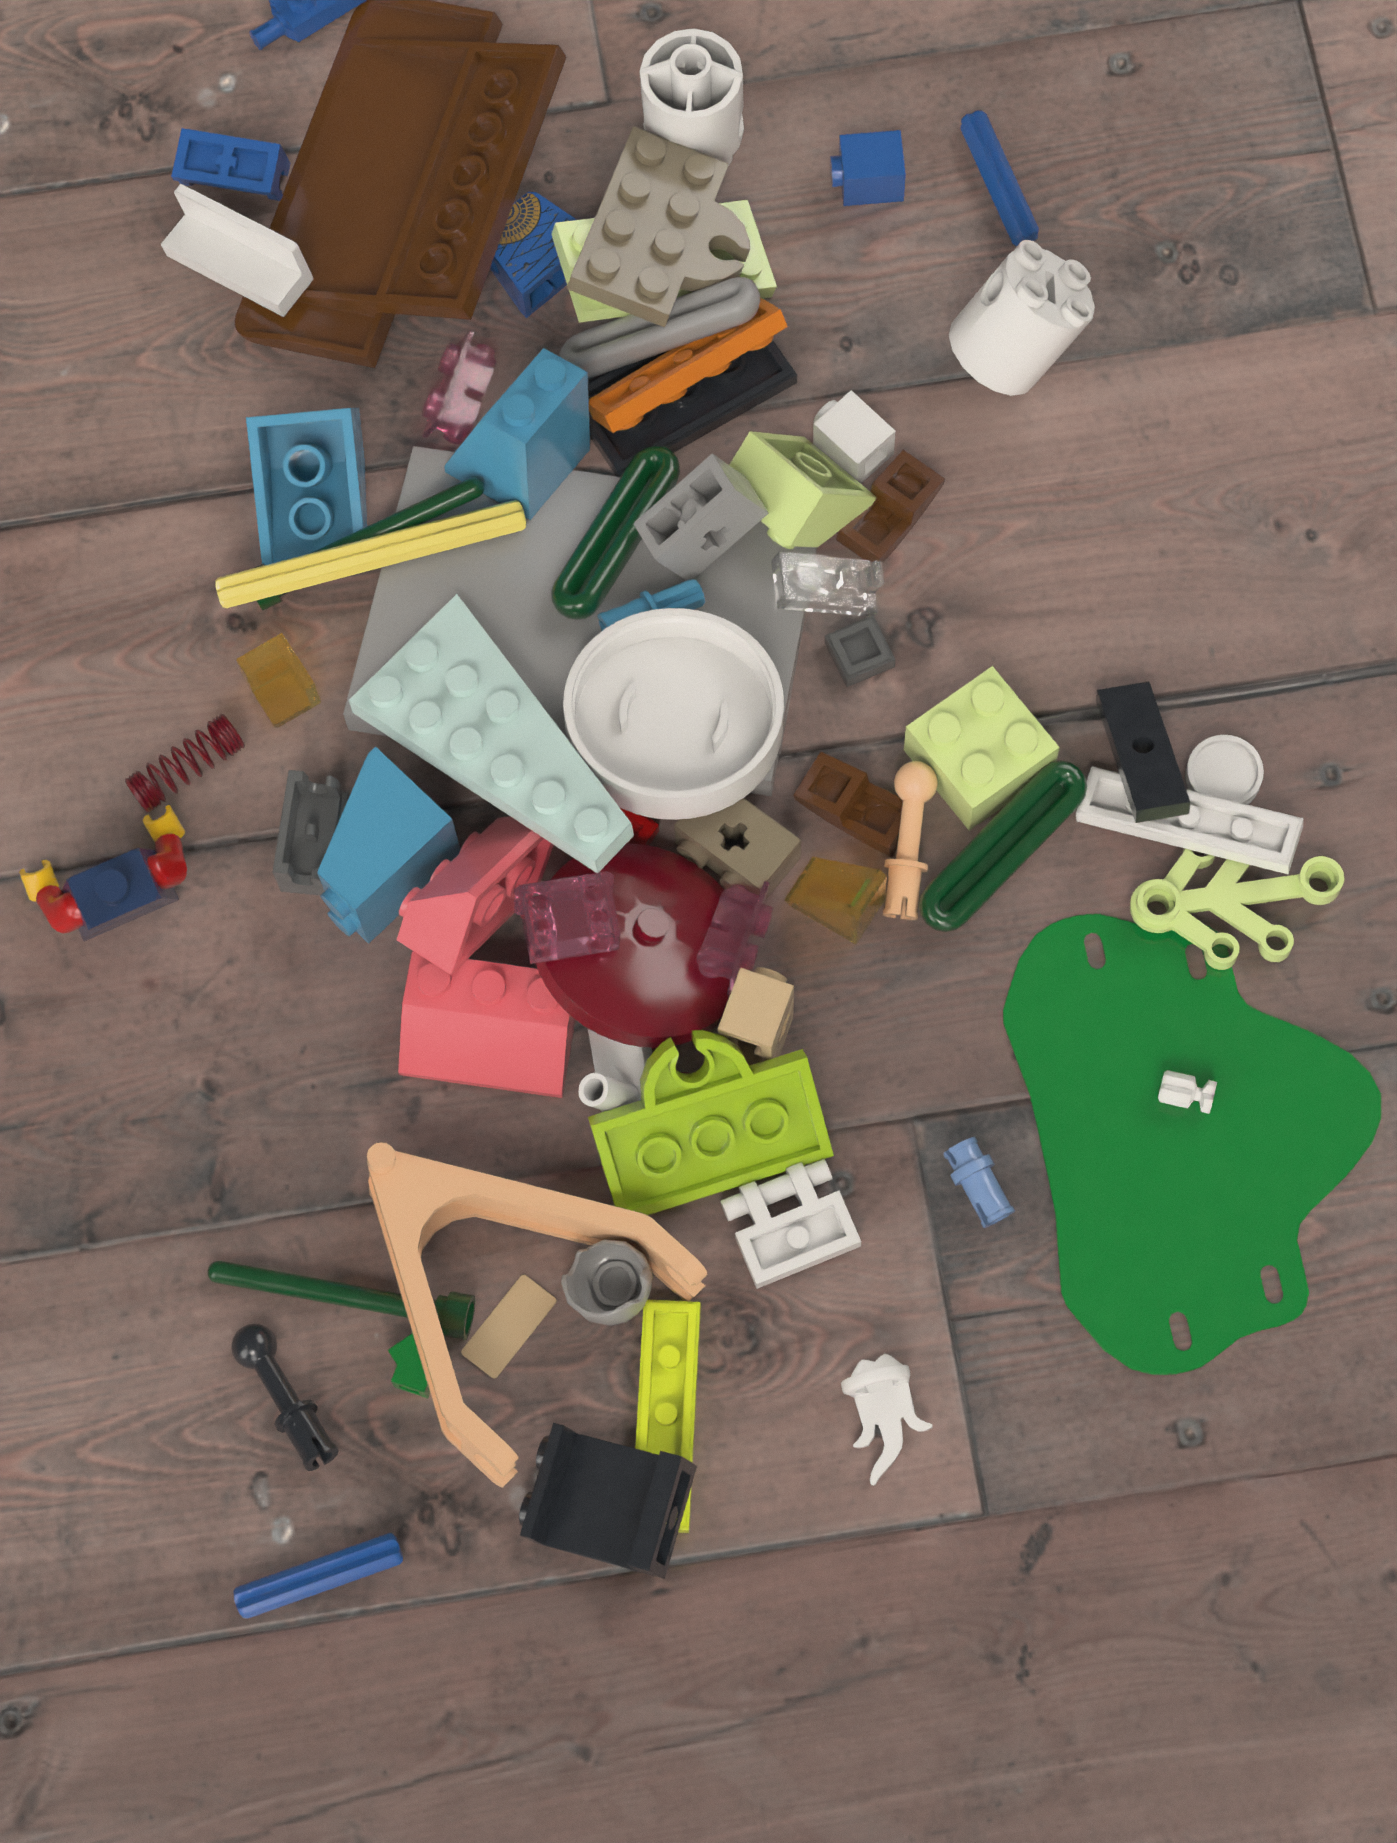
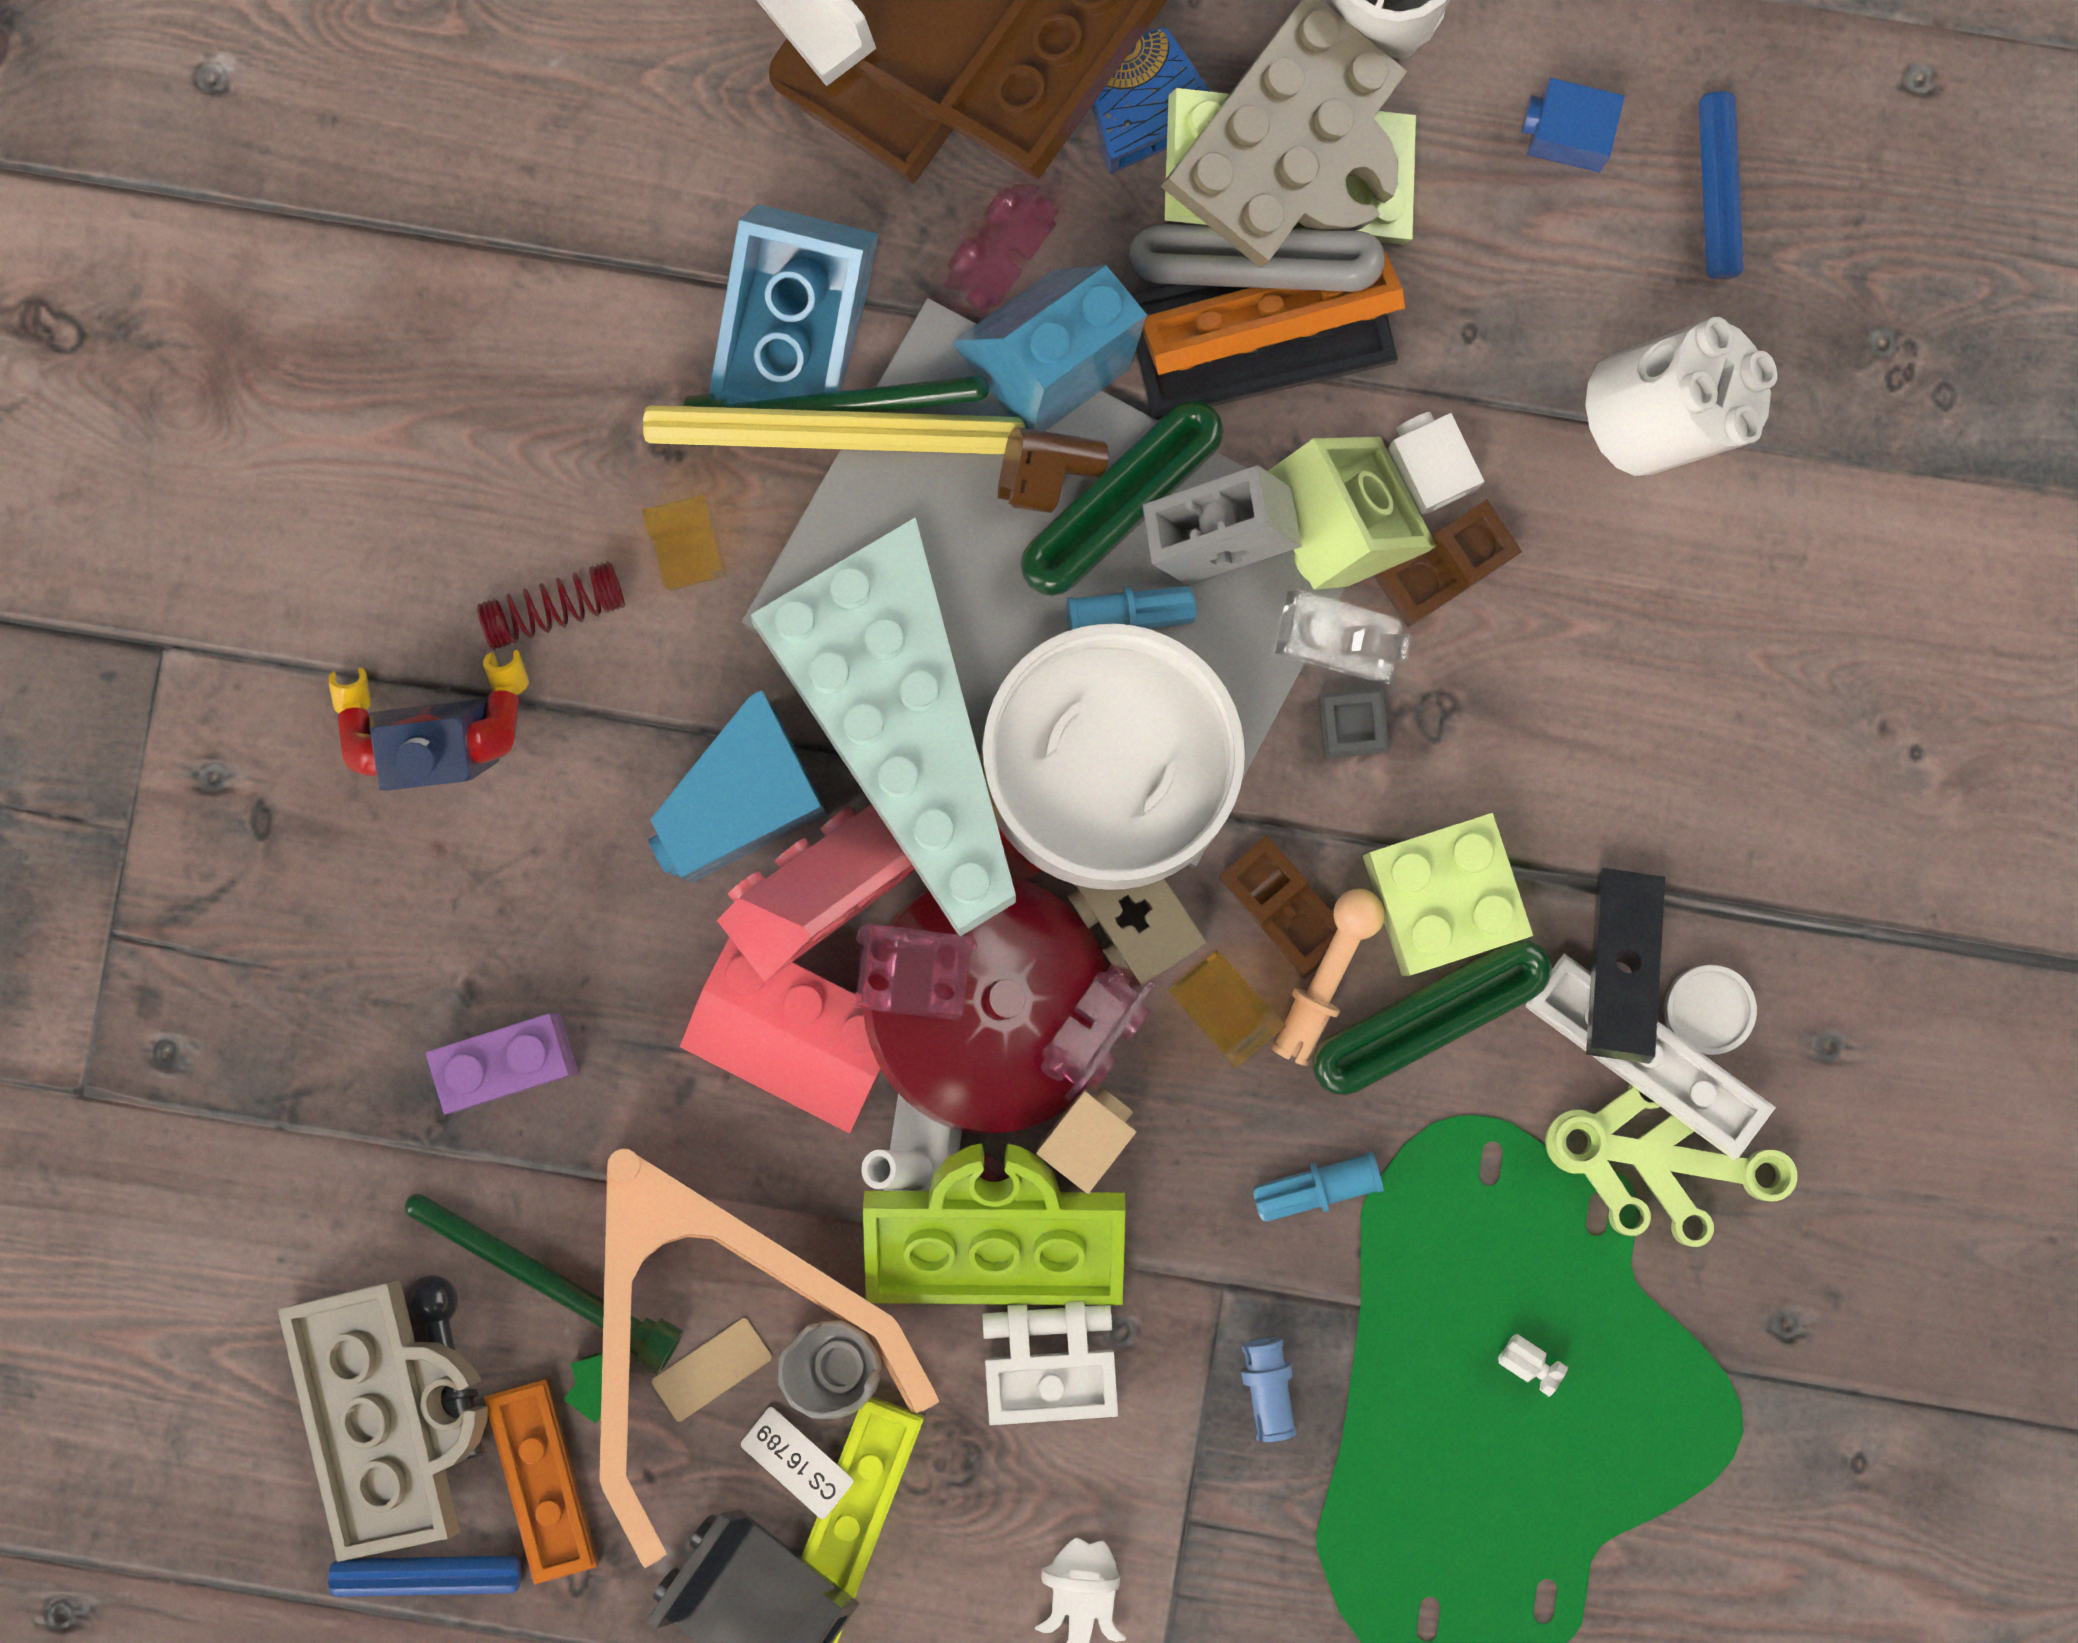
camera: 15 degrees right, 15 degrees up
(239, 1448) = (379, 1418): none -> plate
(255, 1125) = (502, 1063): none -> medium lavender brick
(305, 831) = (665, 738): dark grey hinge -> none
(393, 1463) = (541, 1480): none -> orange tile
(541, 527) = (1037, 464): none -> reddish brown piece
(605, 1374) = (796, 1462): none -> white sticker
(961, 1010) = (1318, 1187): none -> dark azure axle

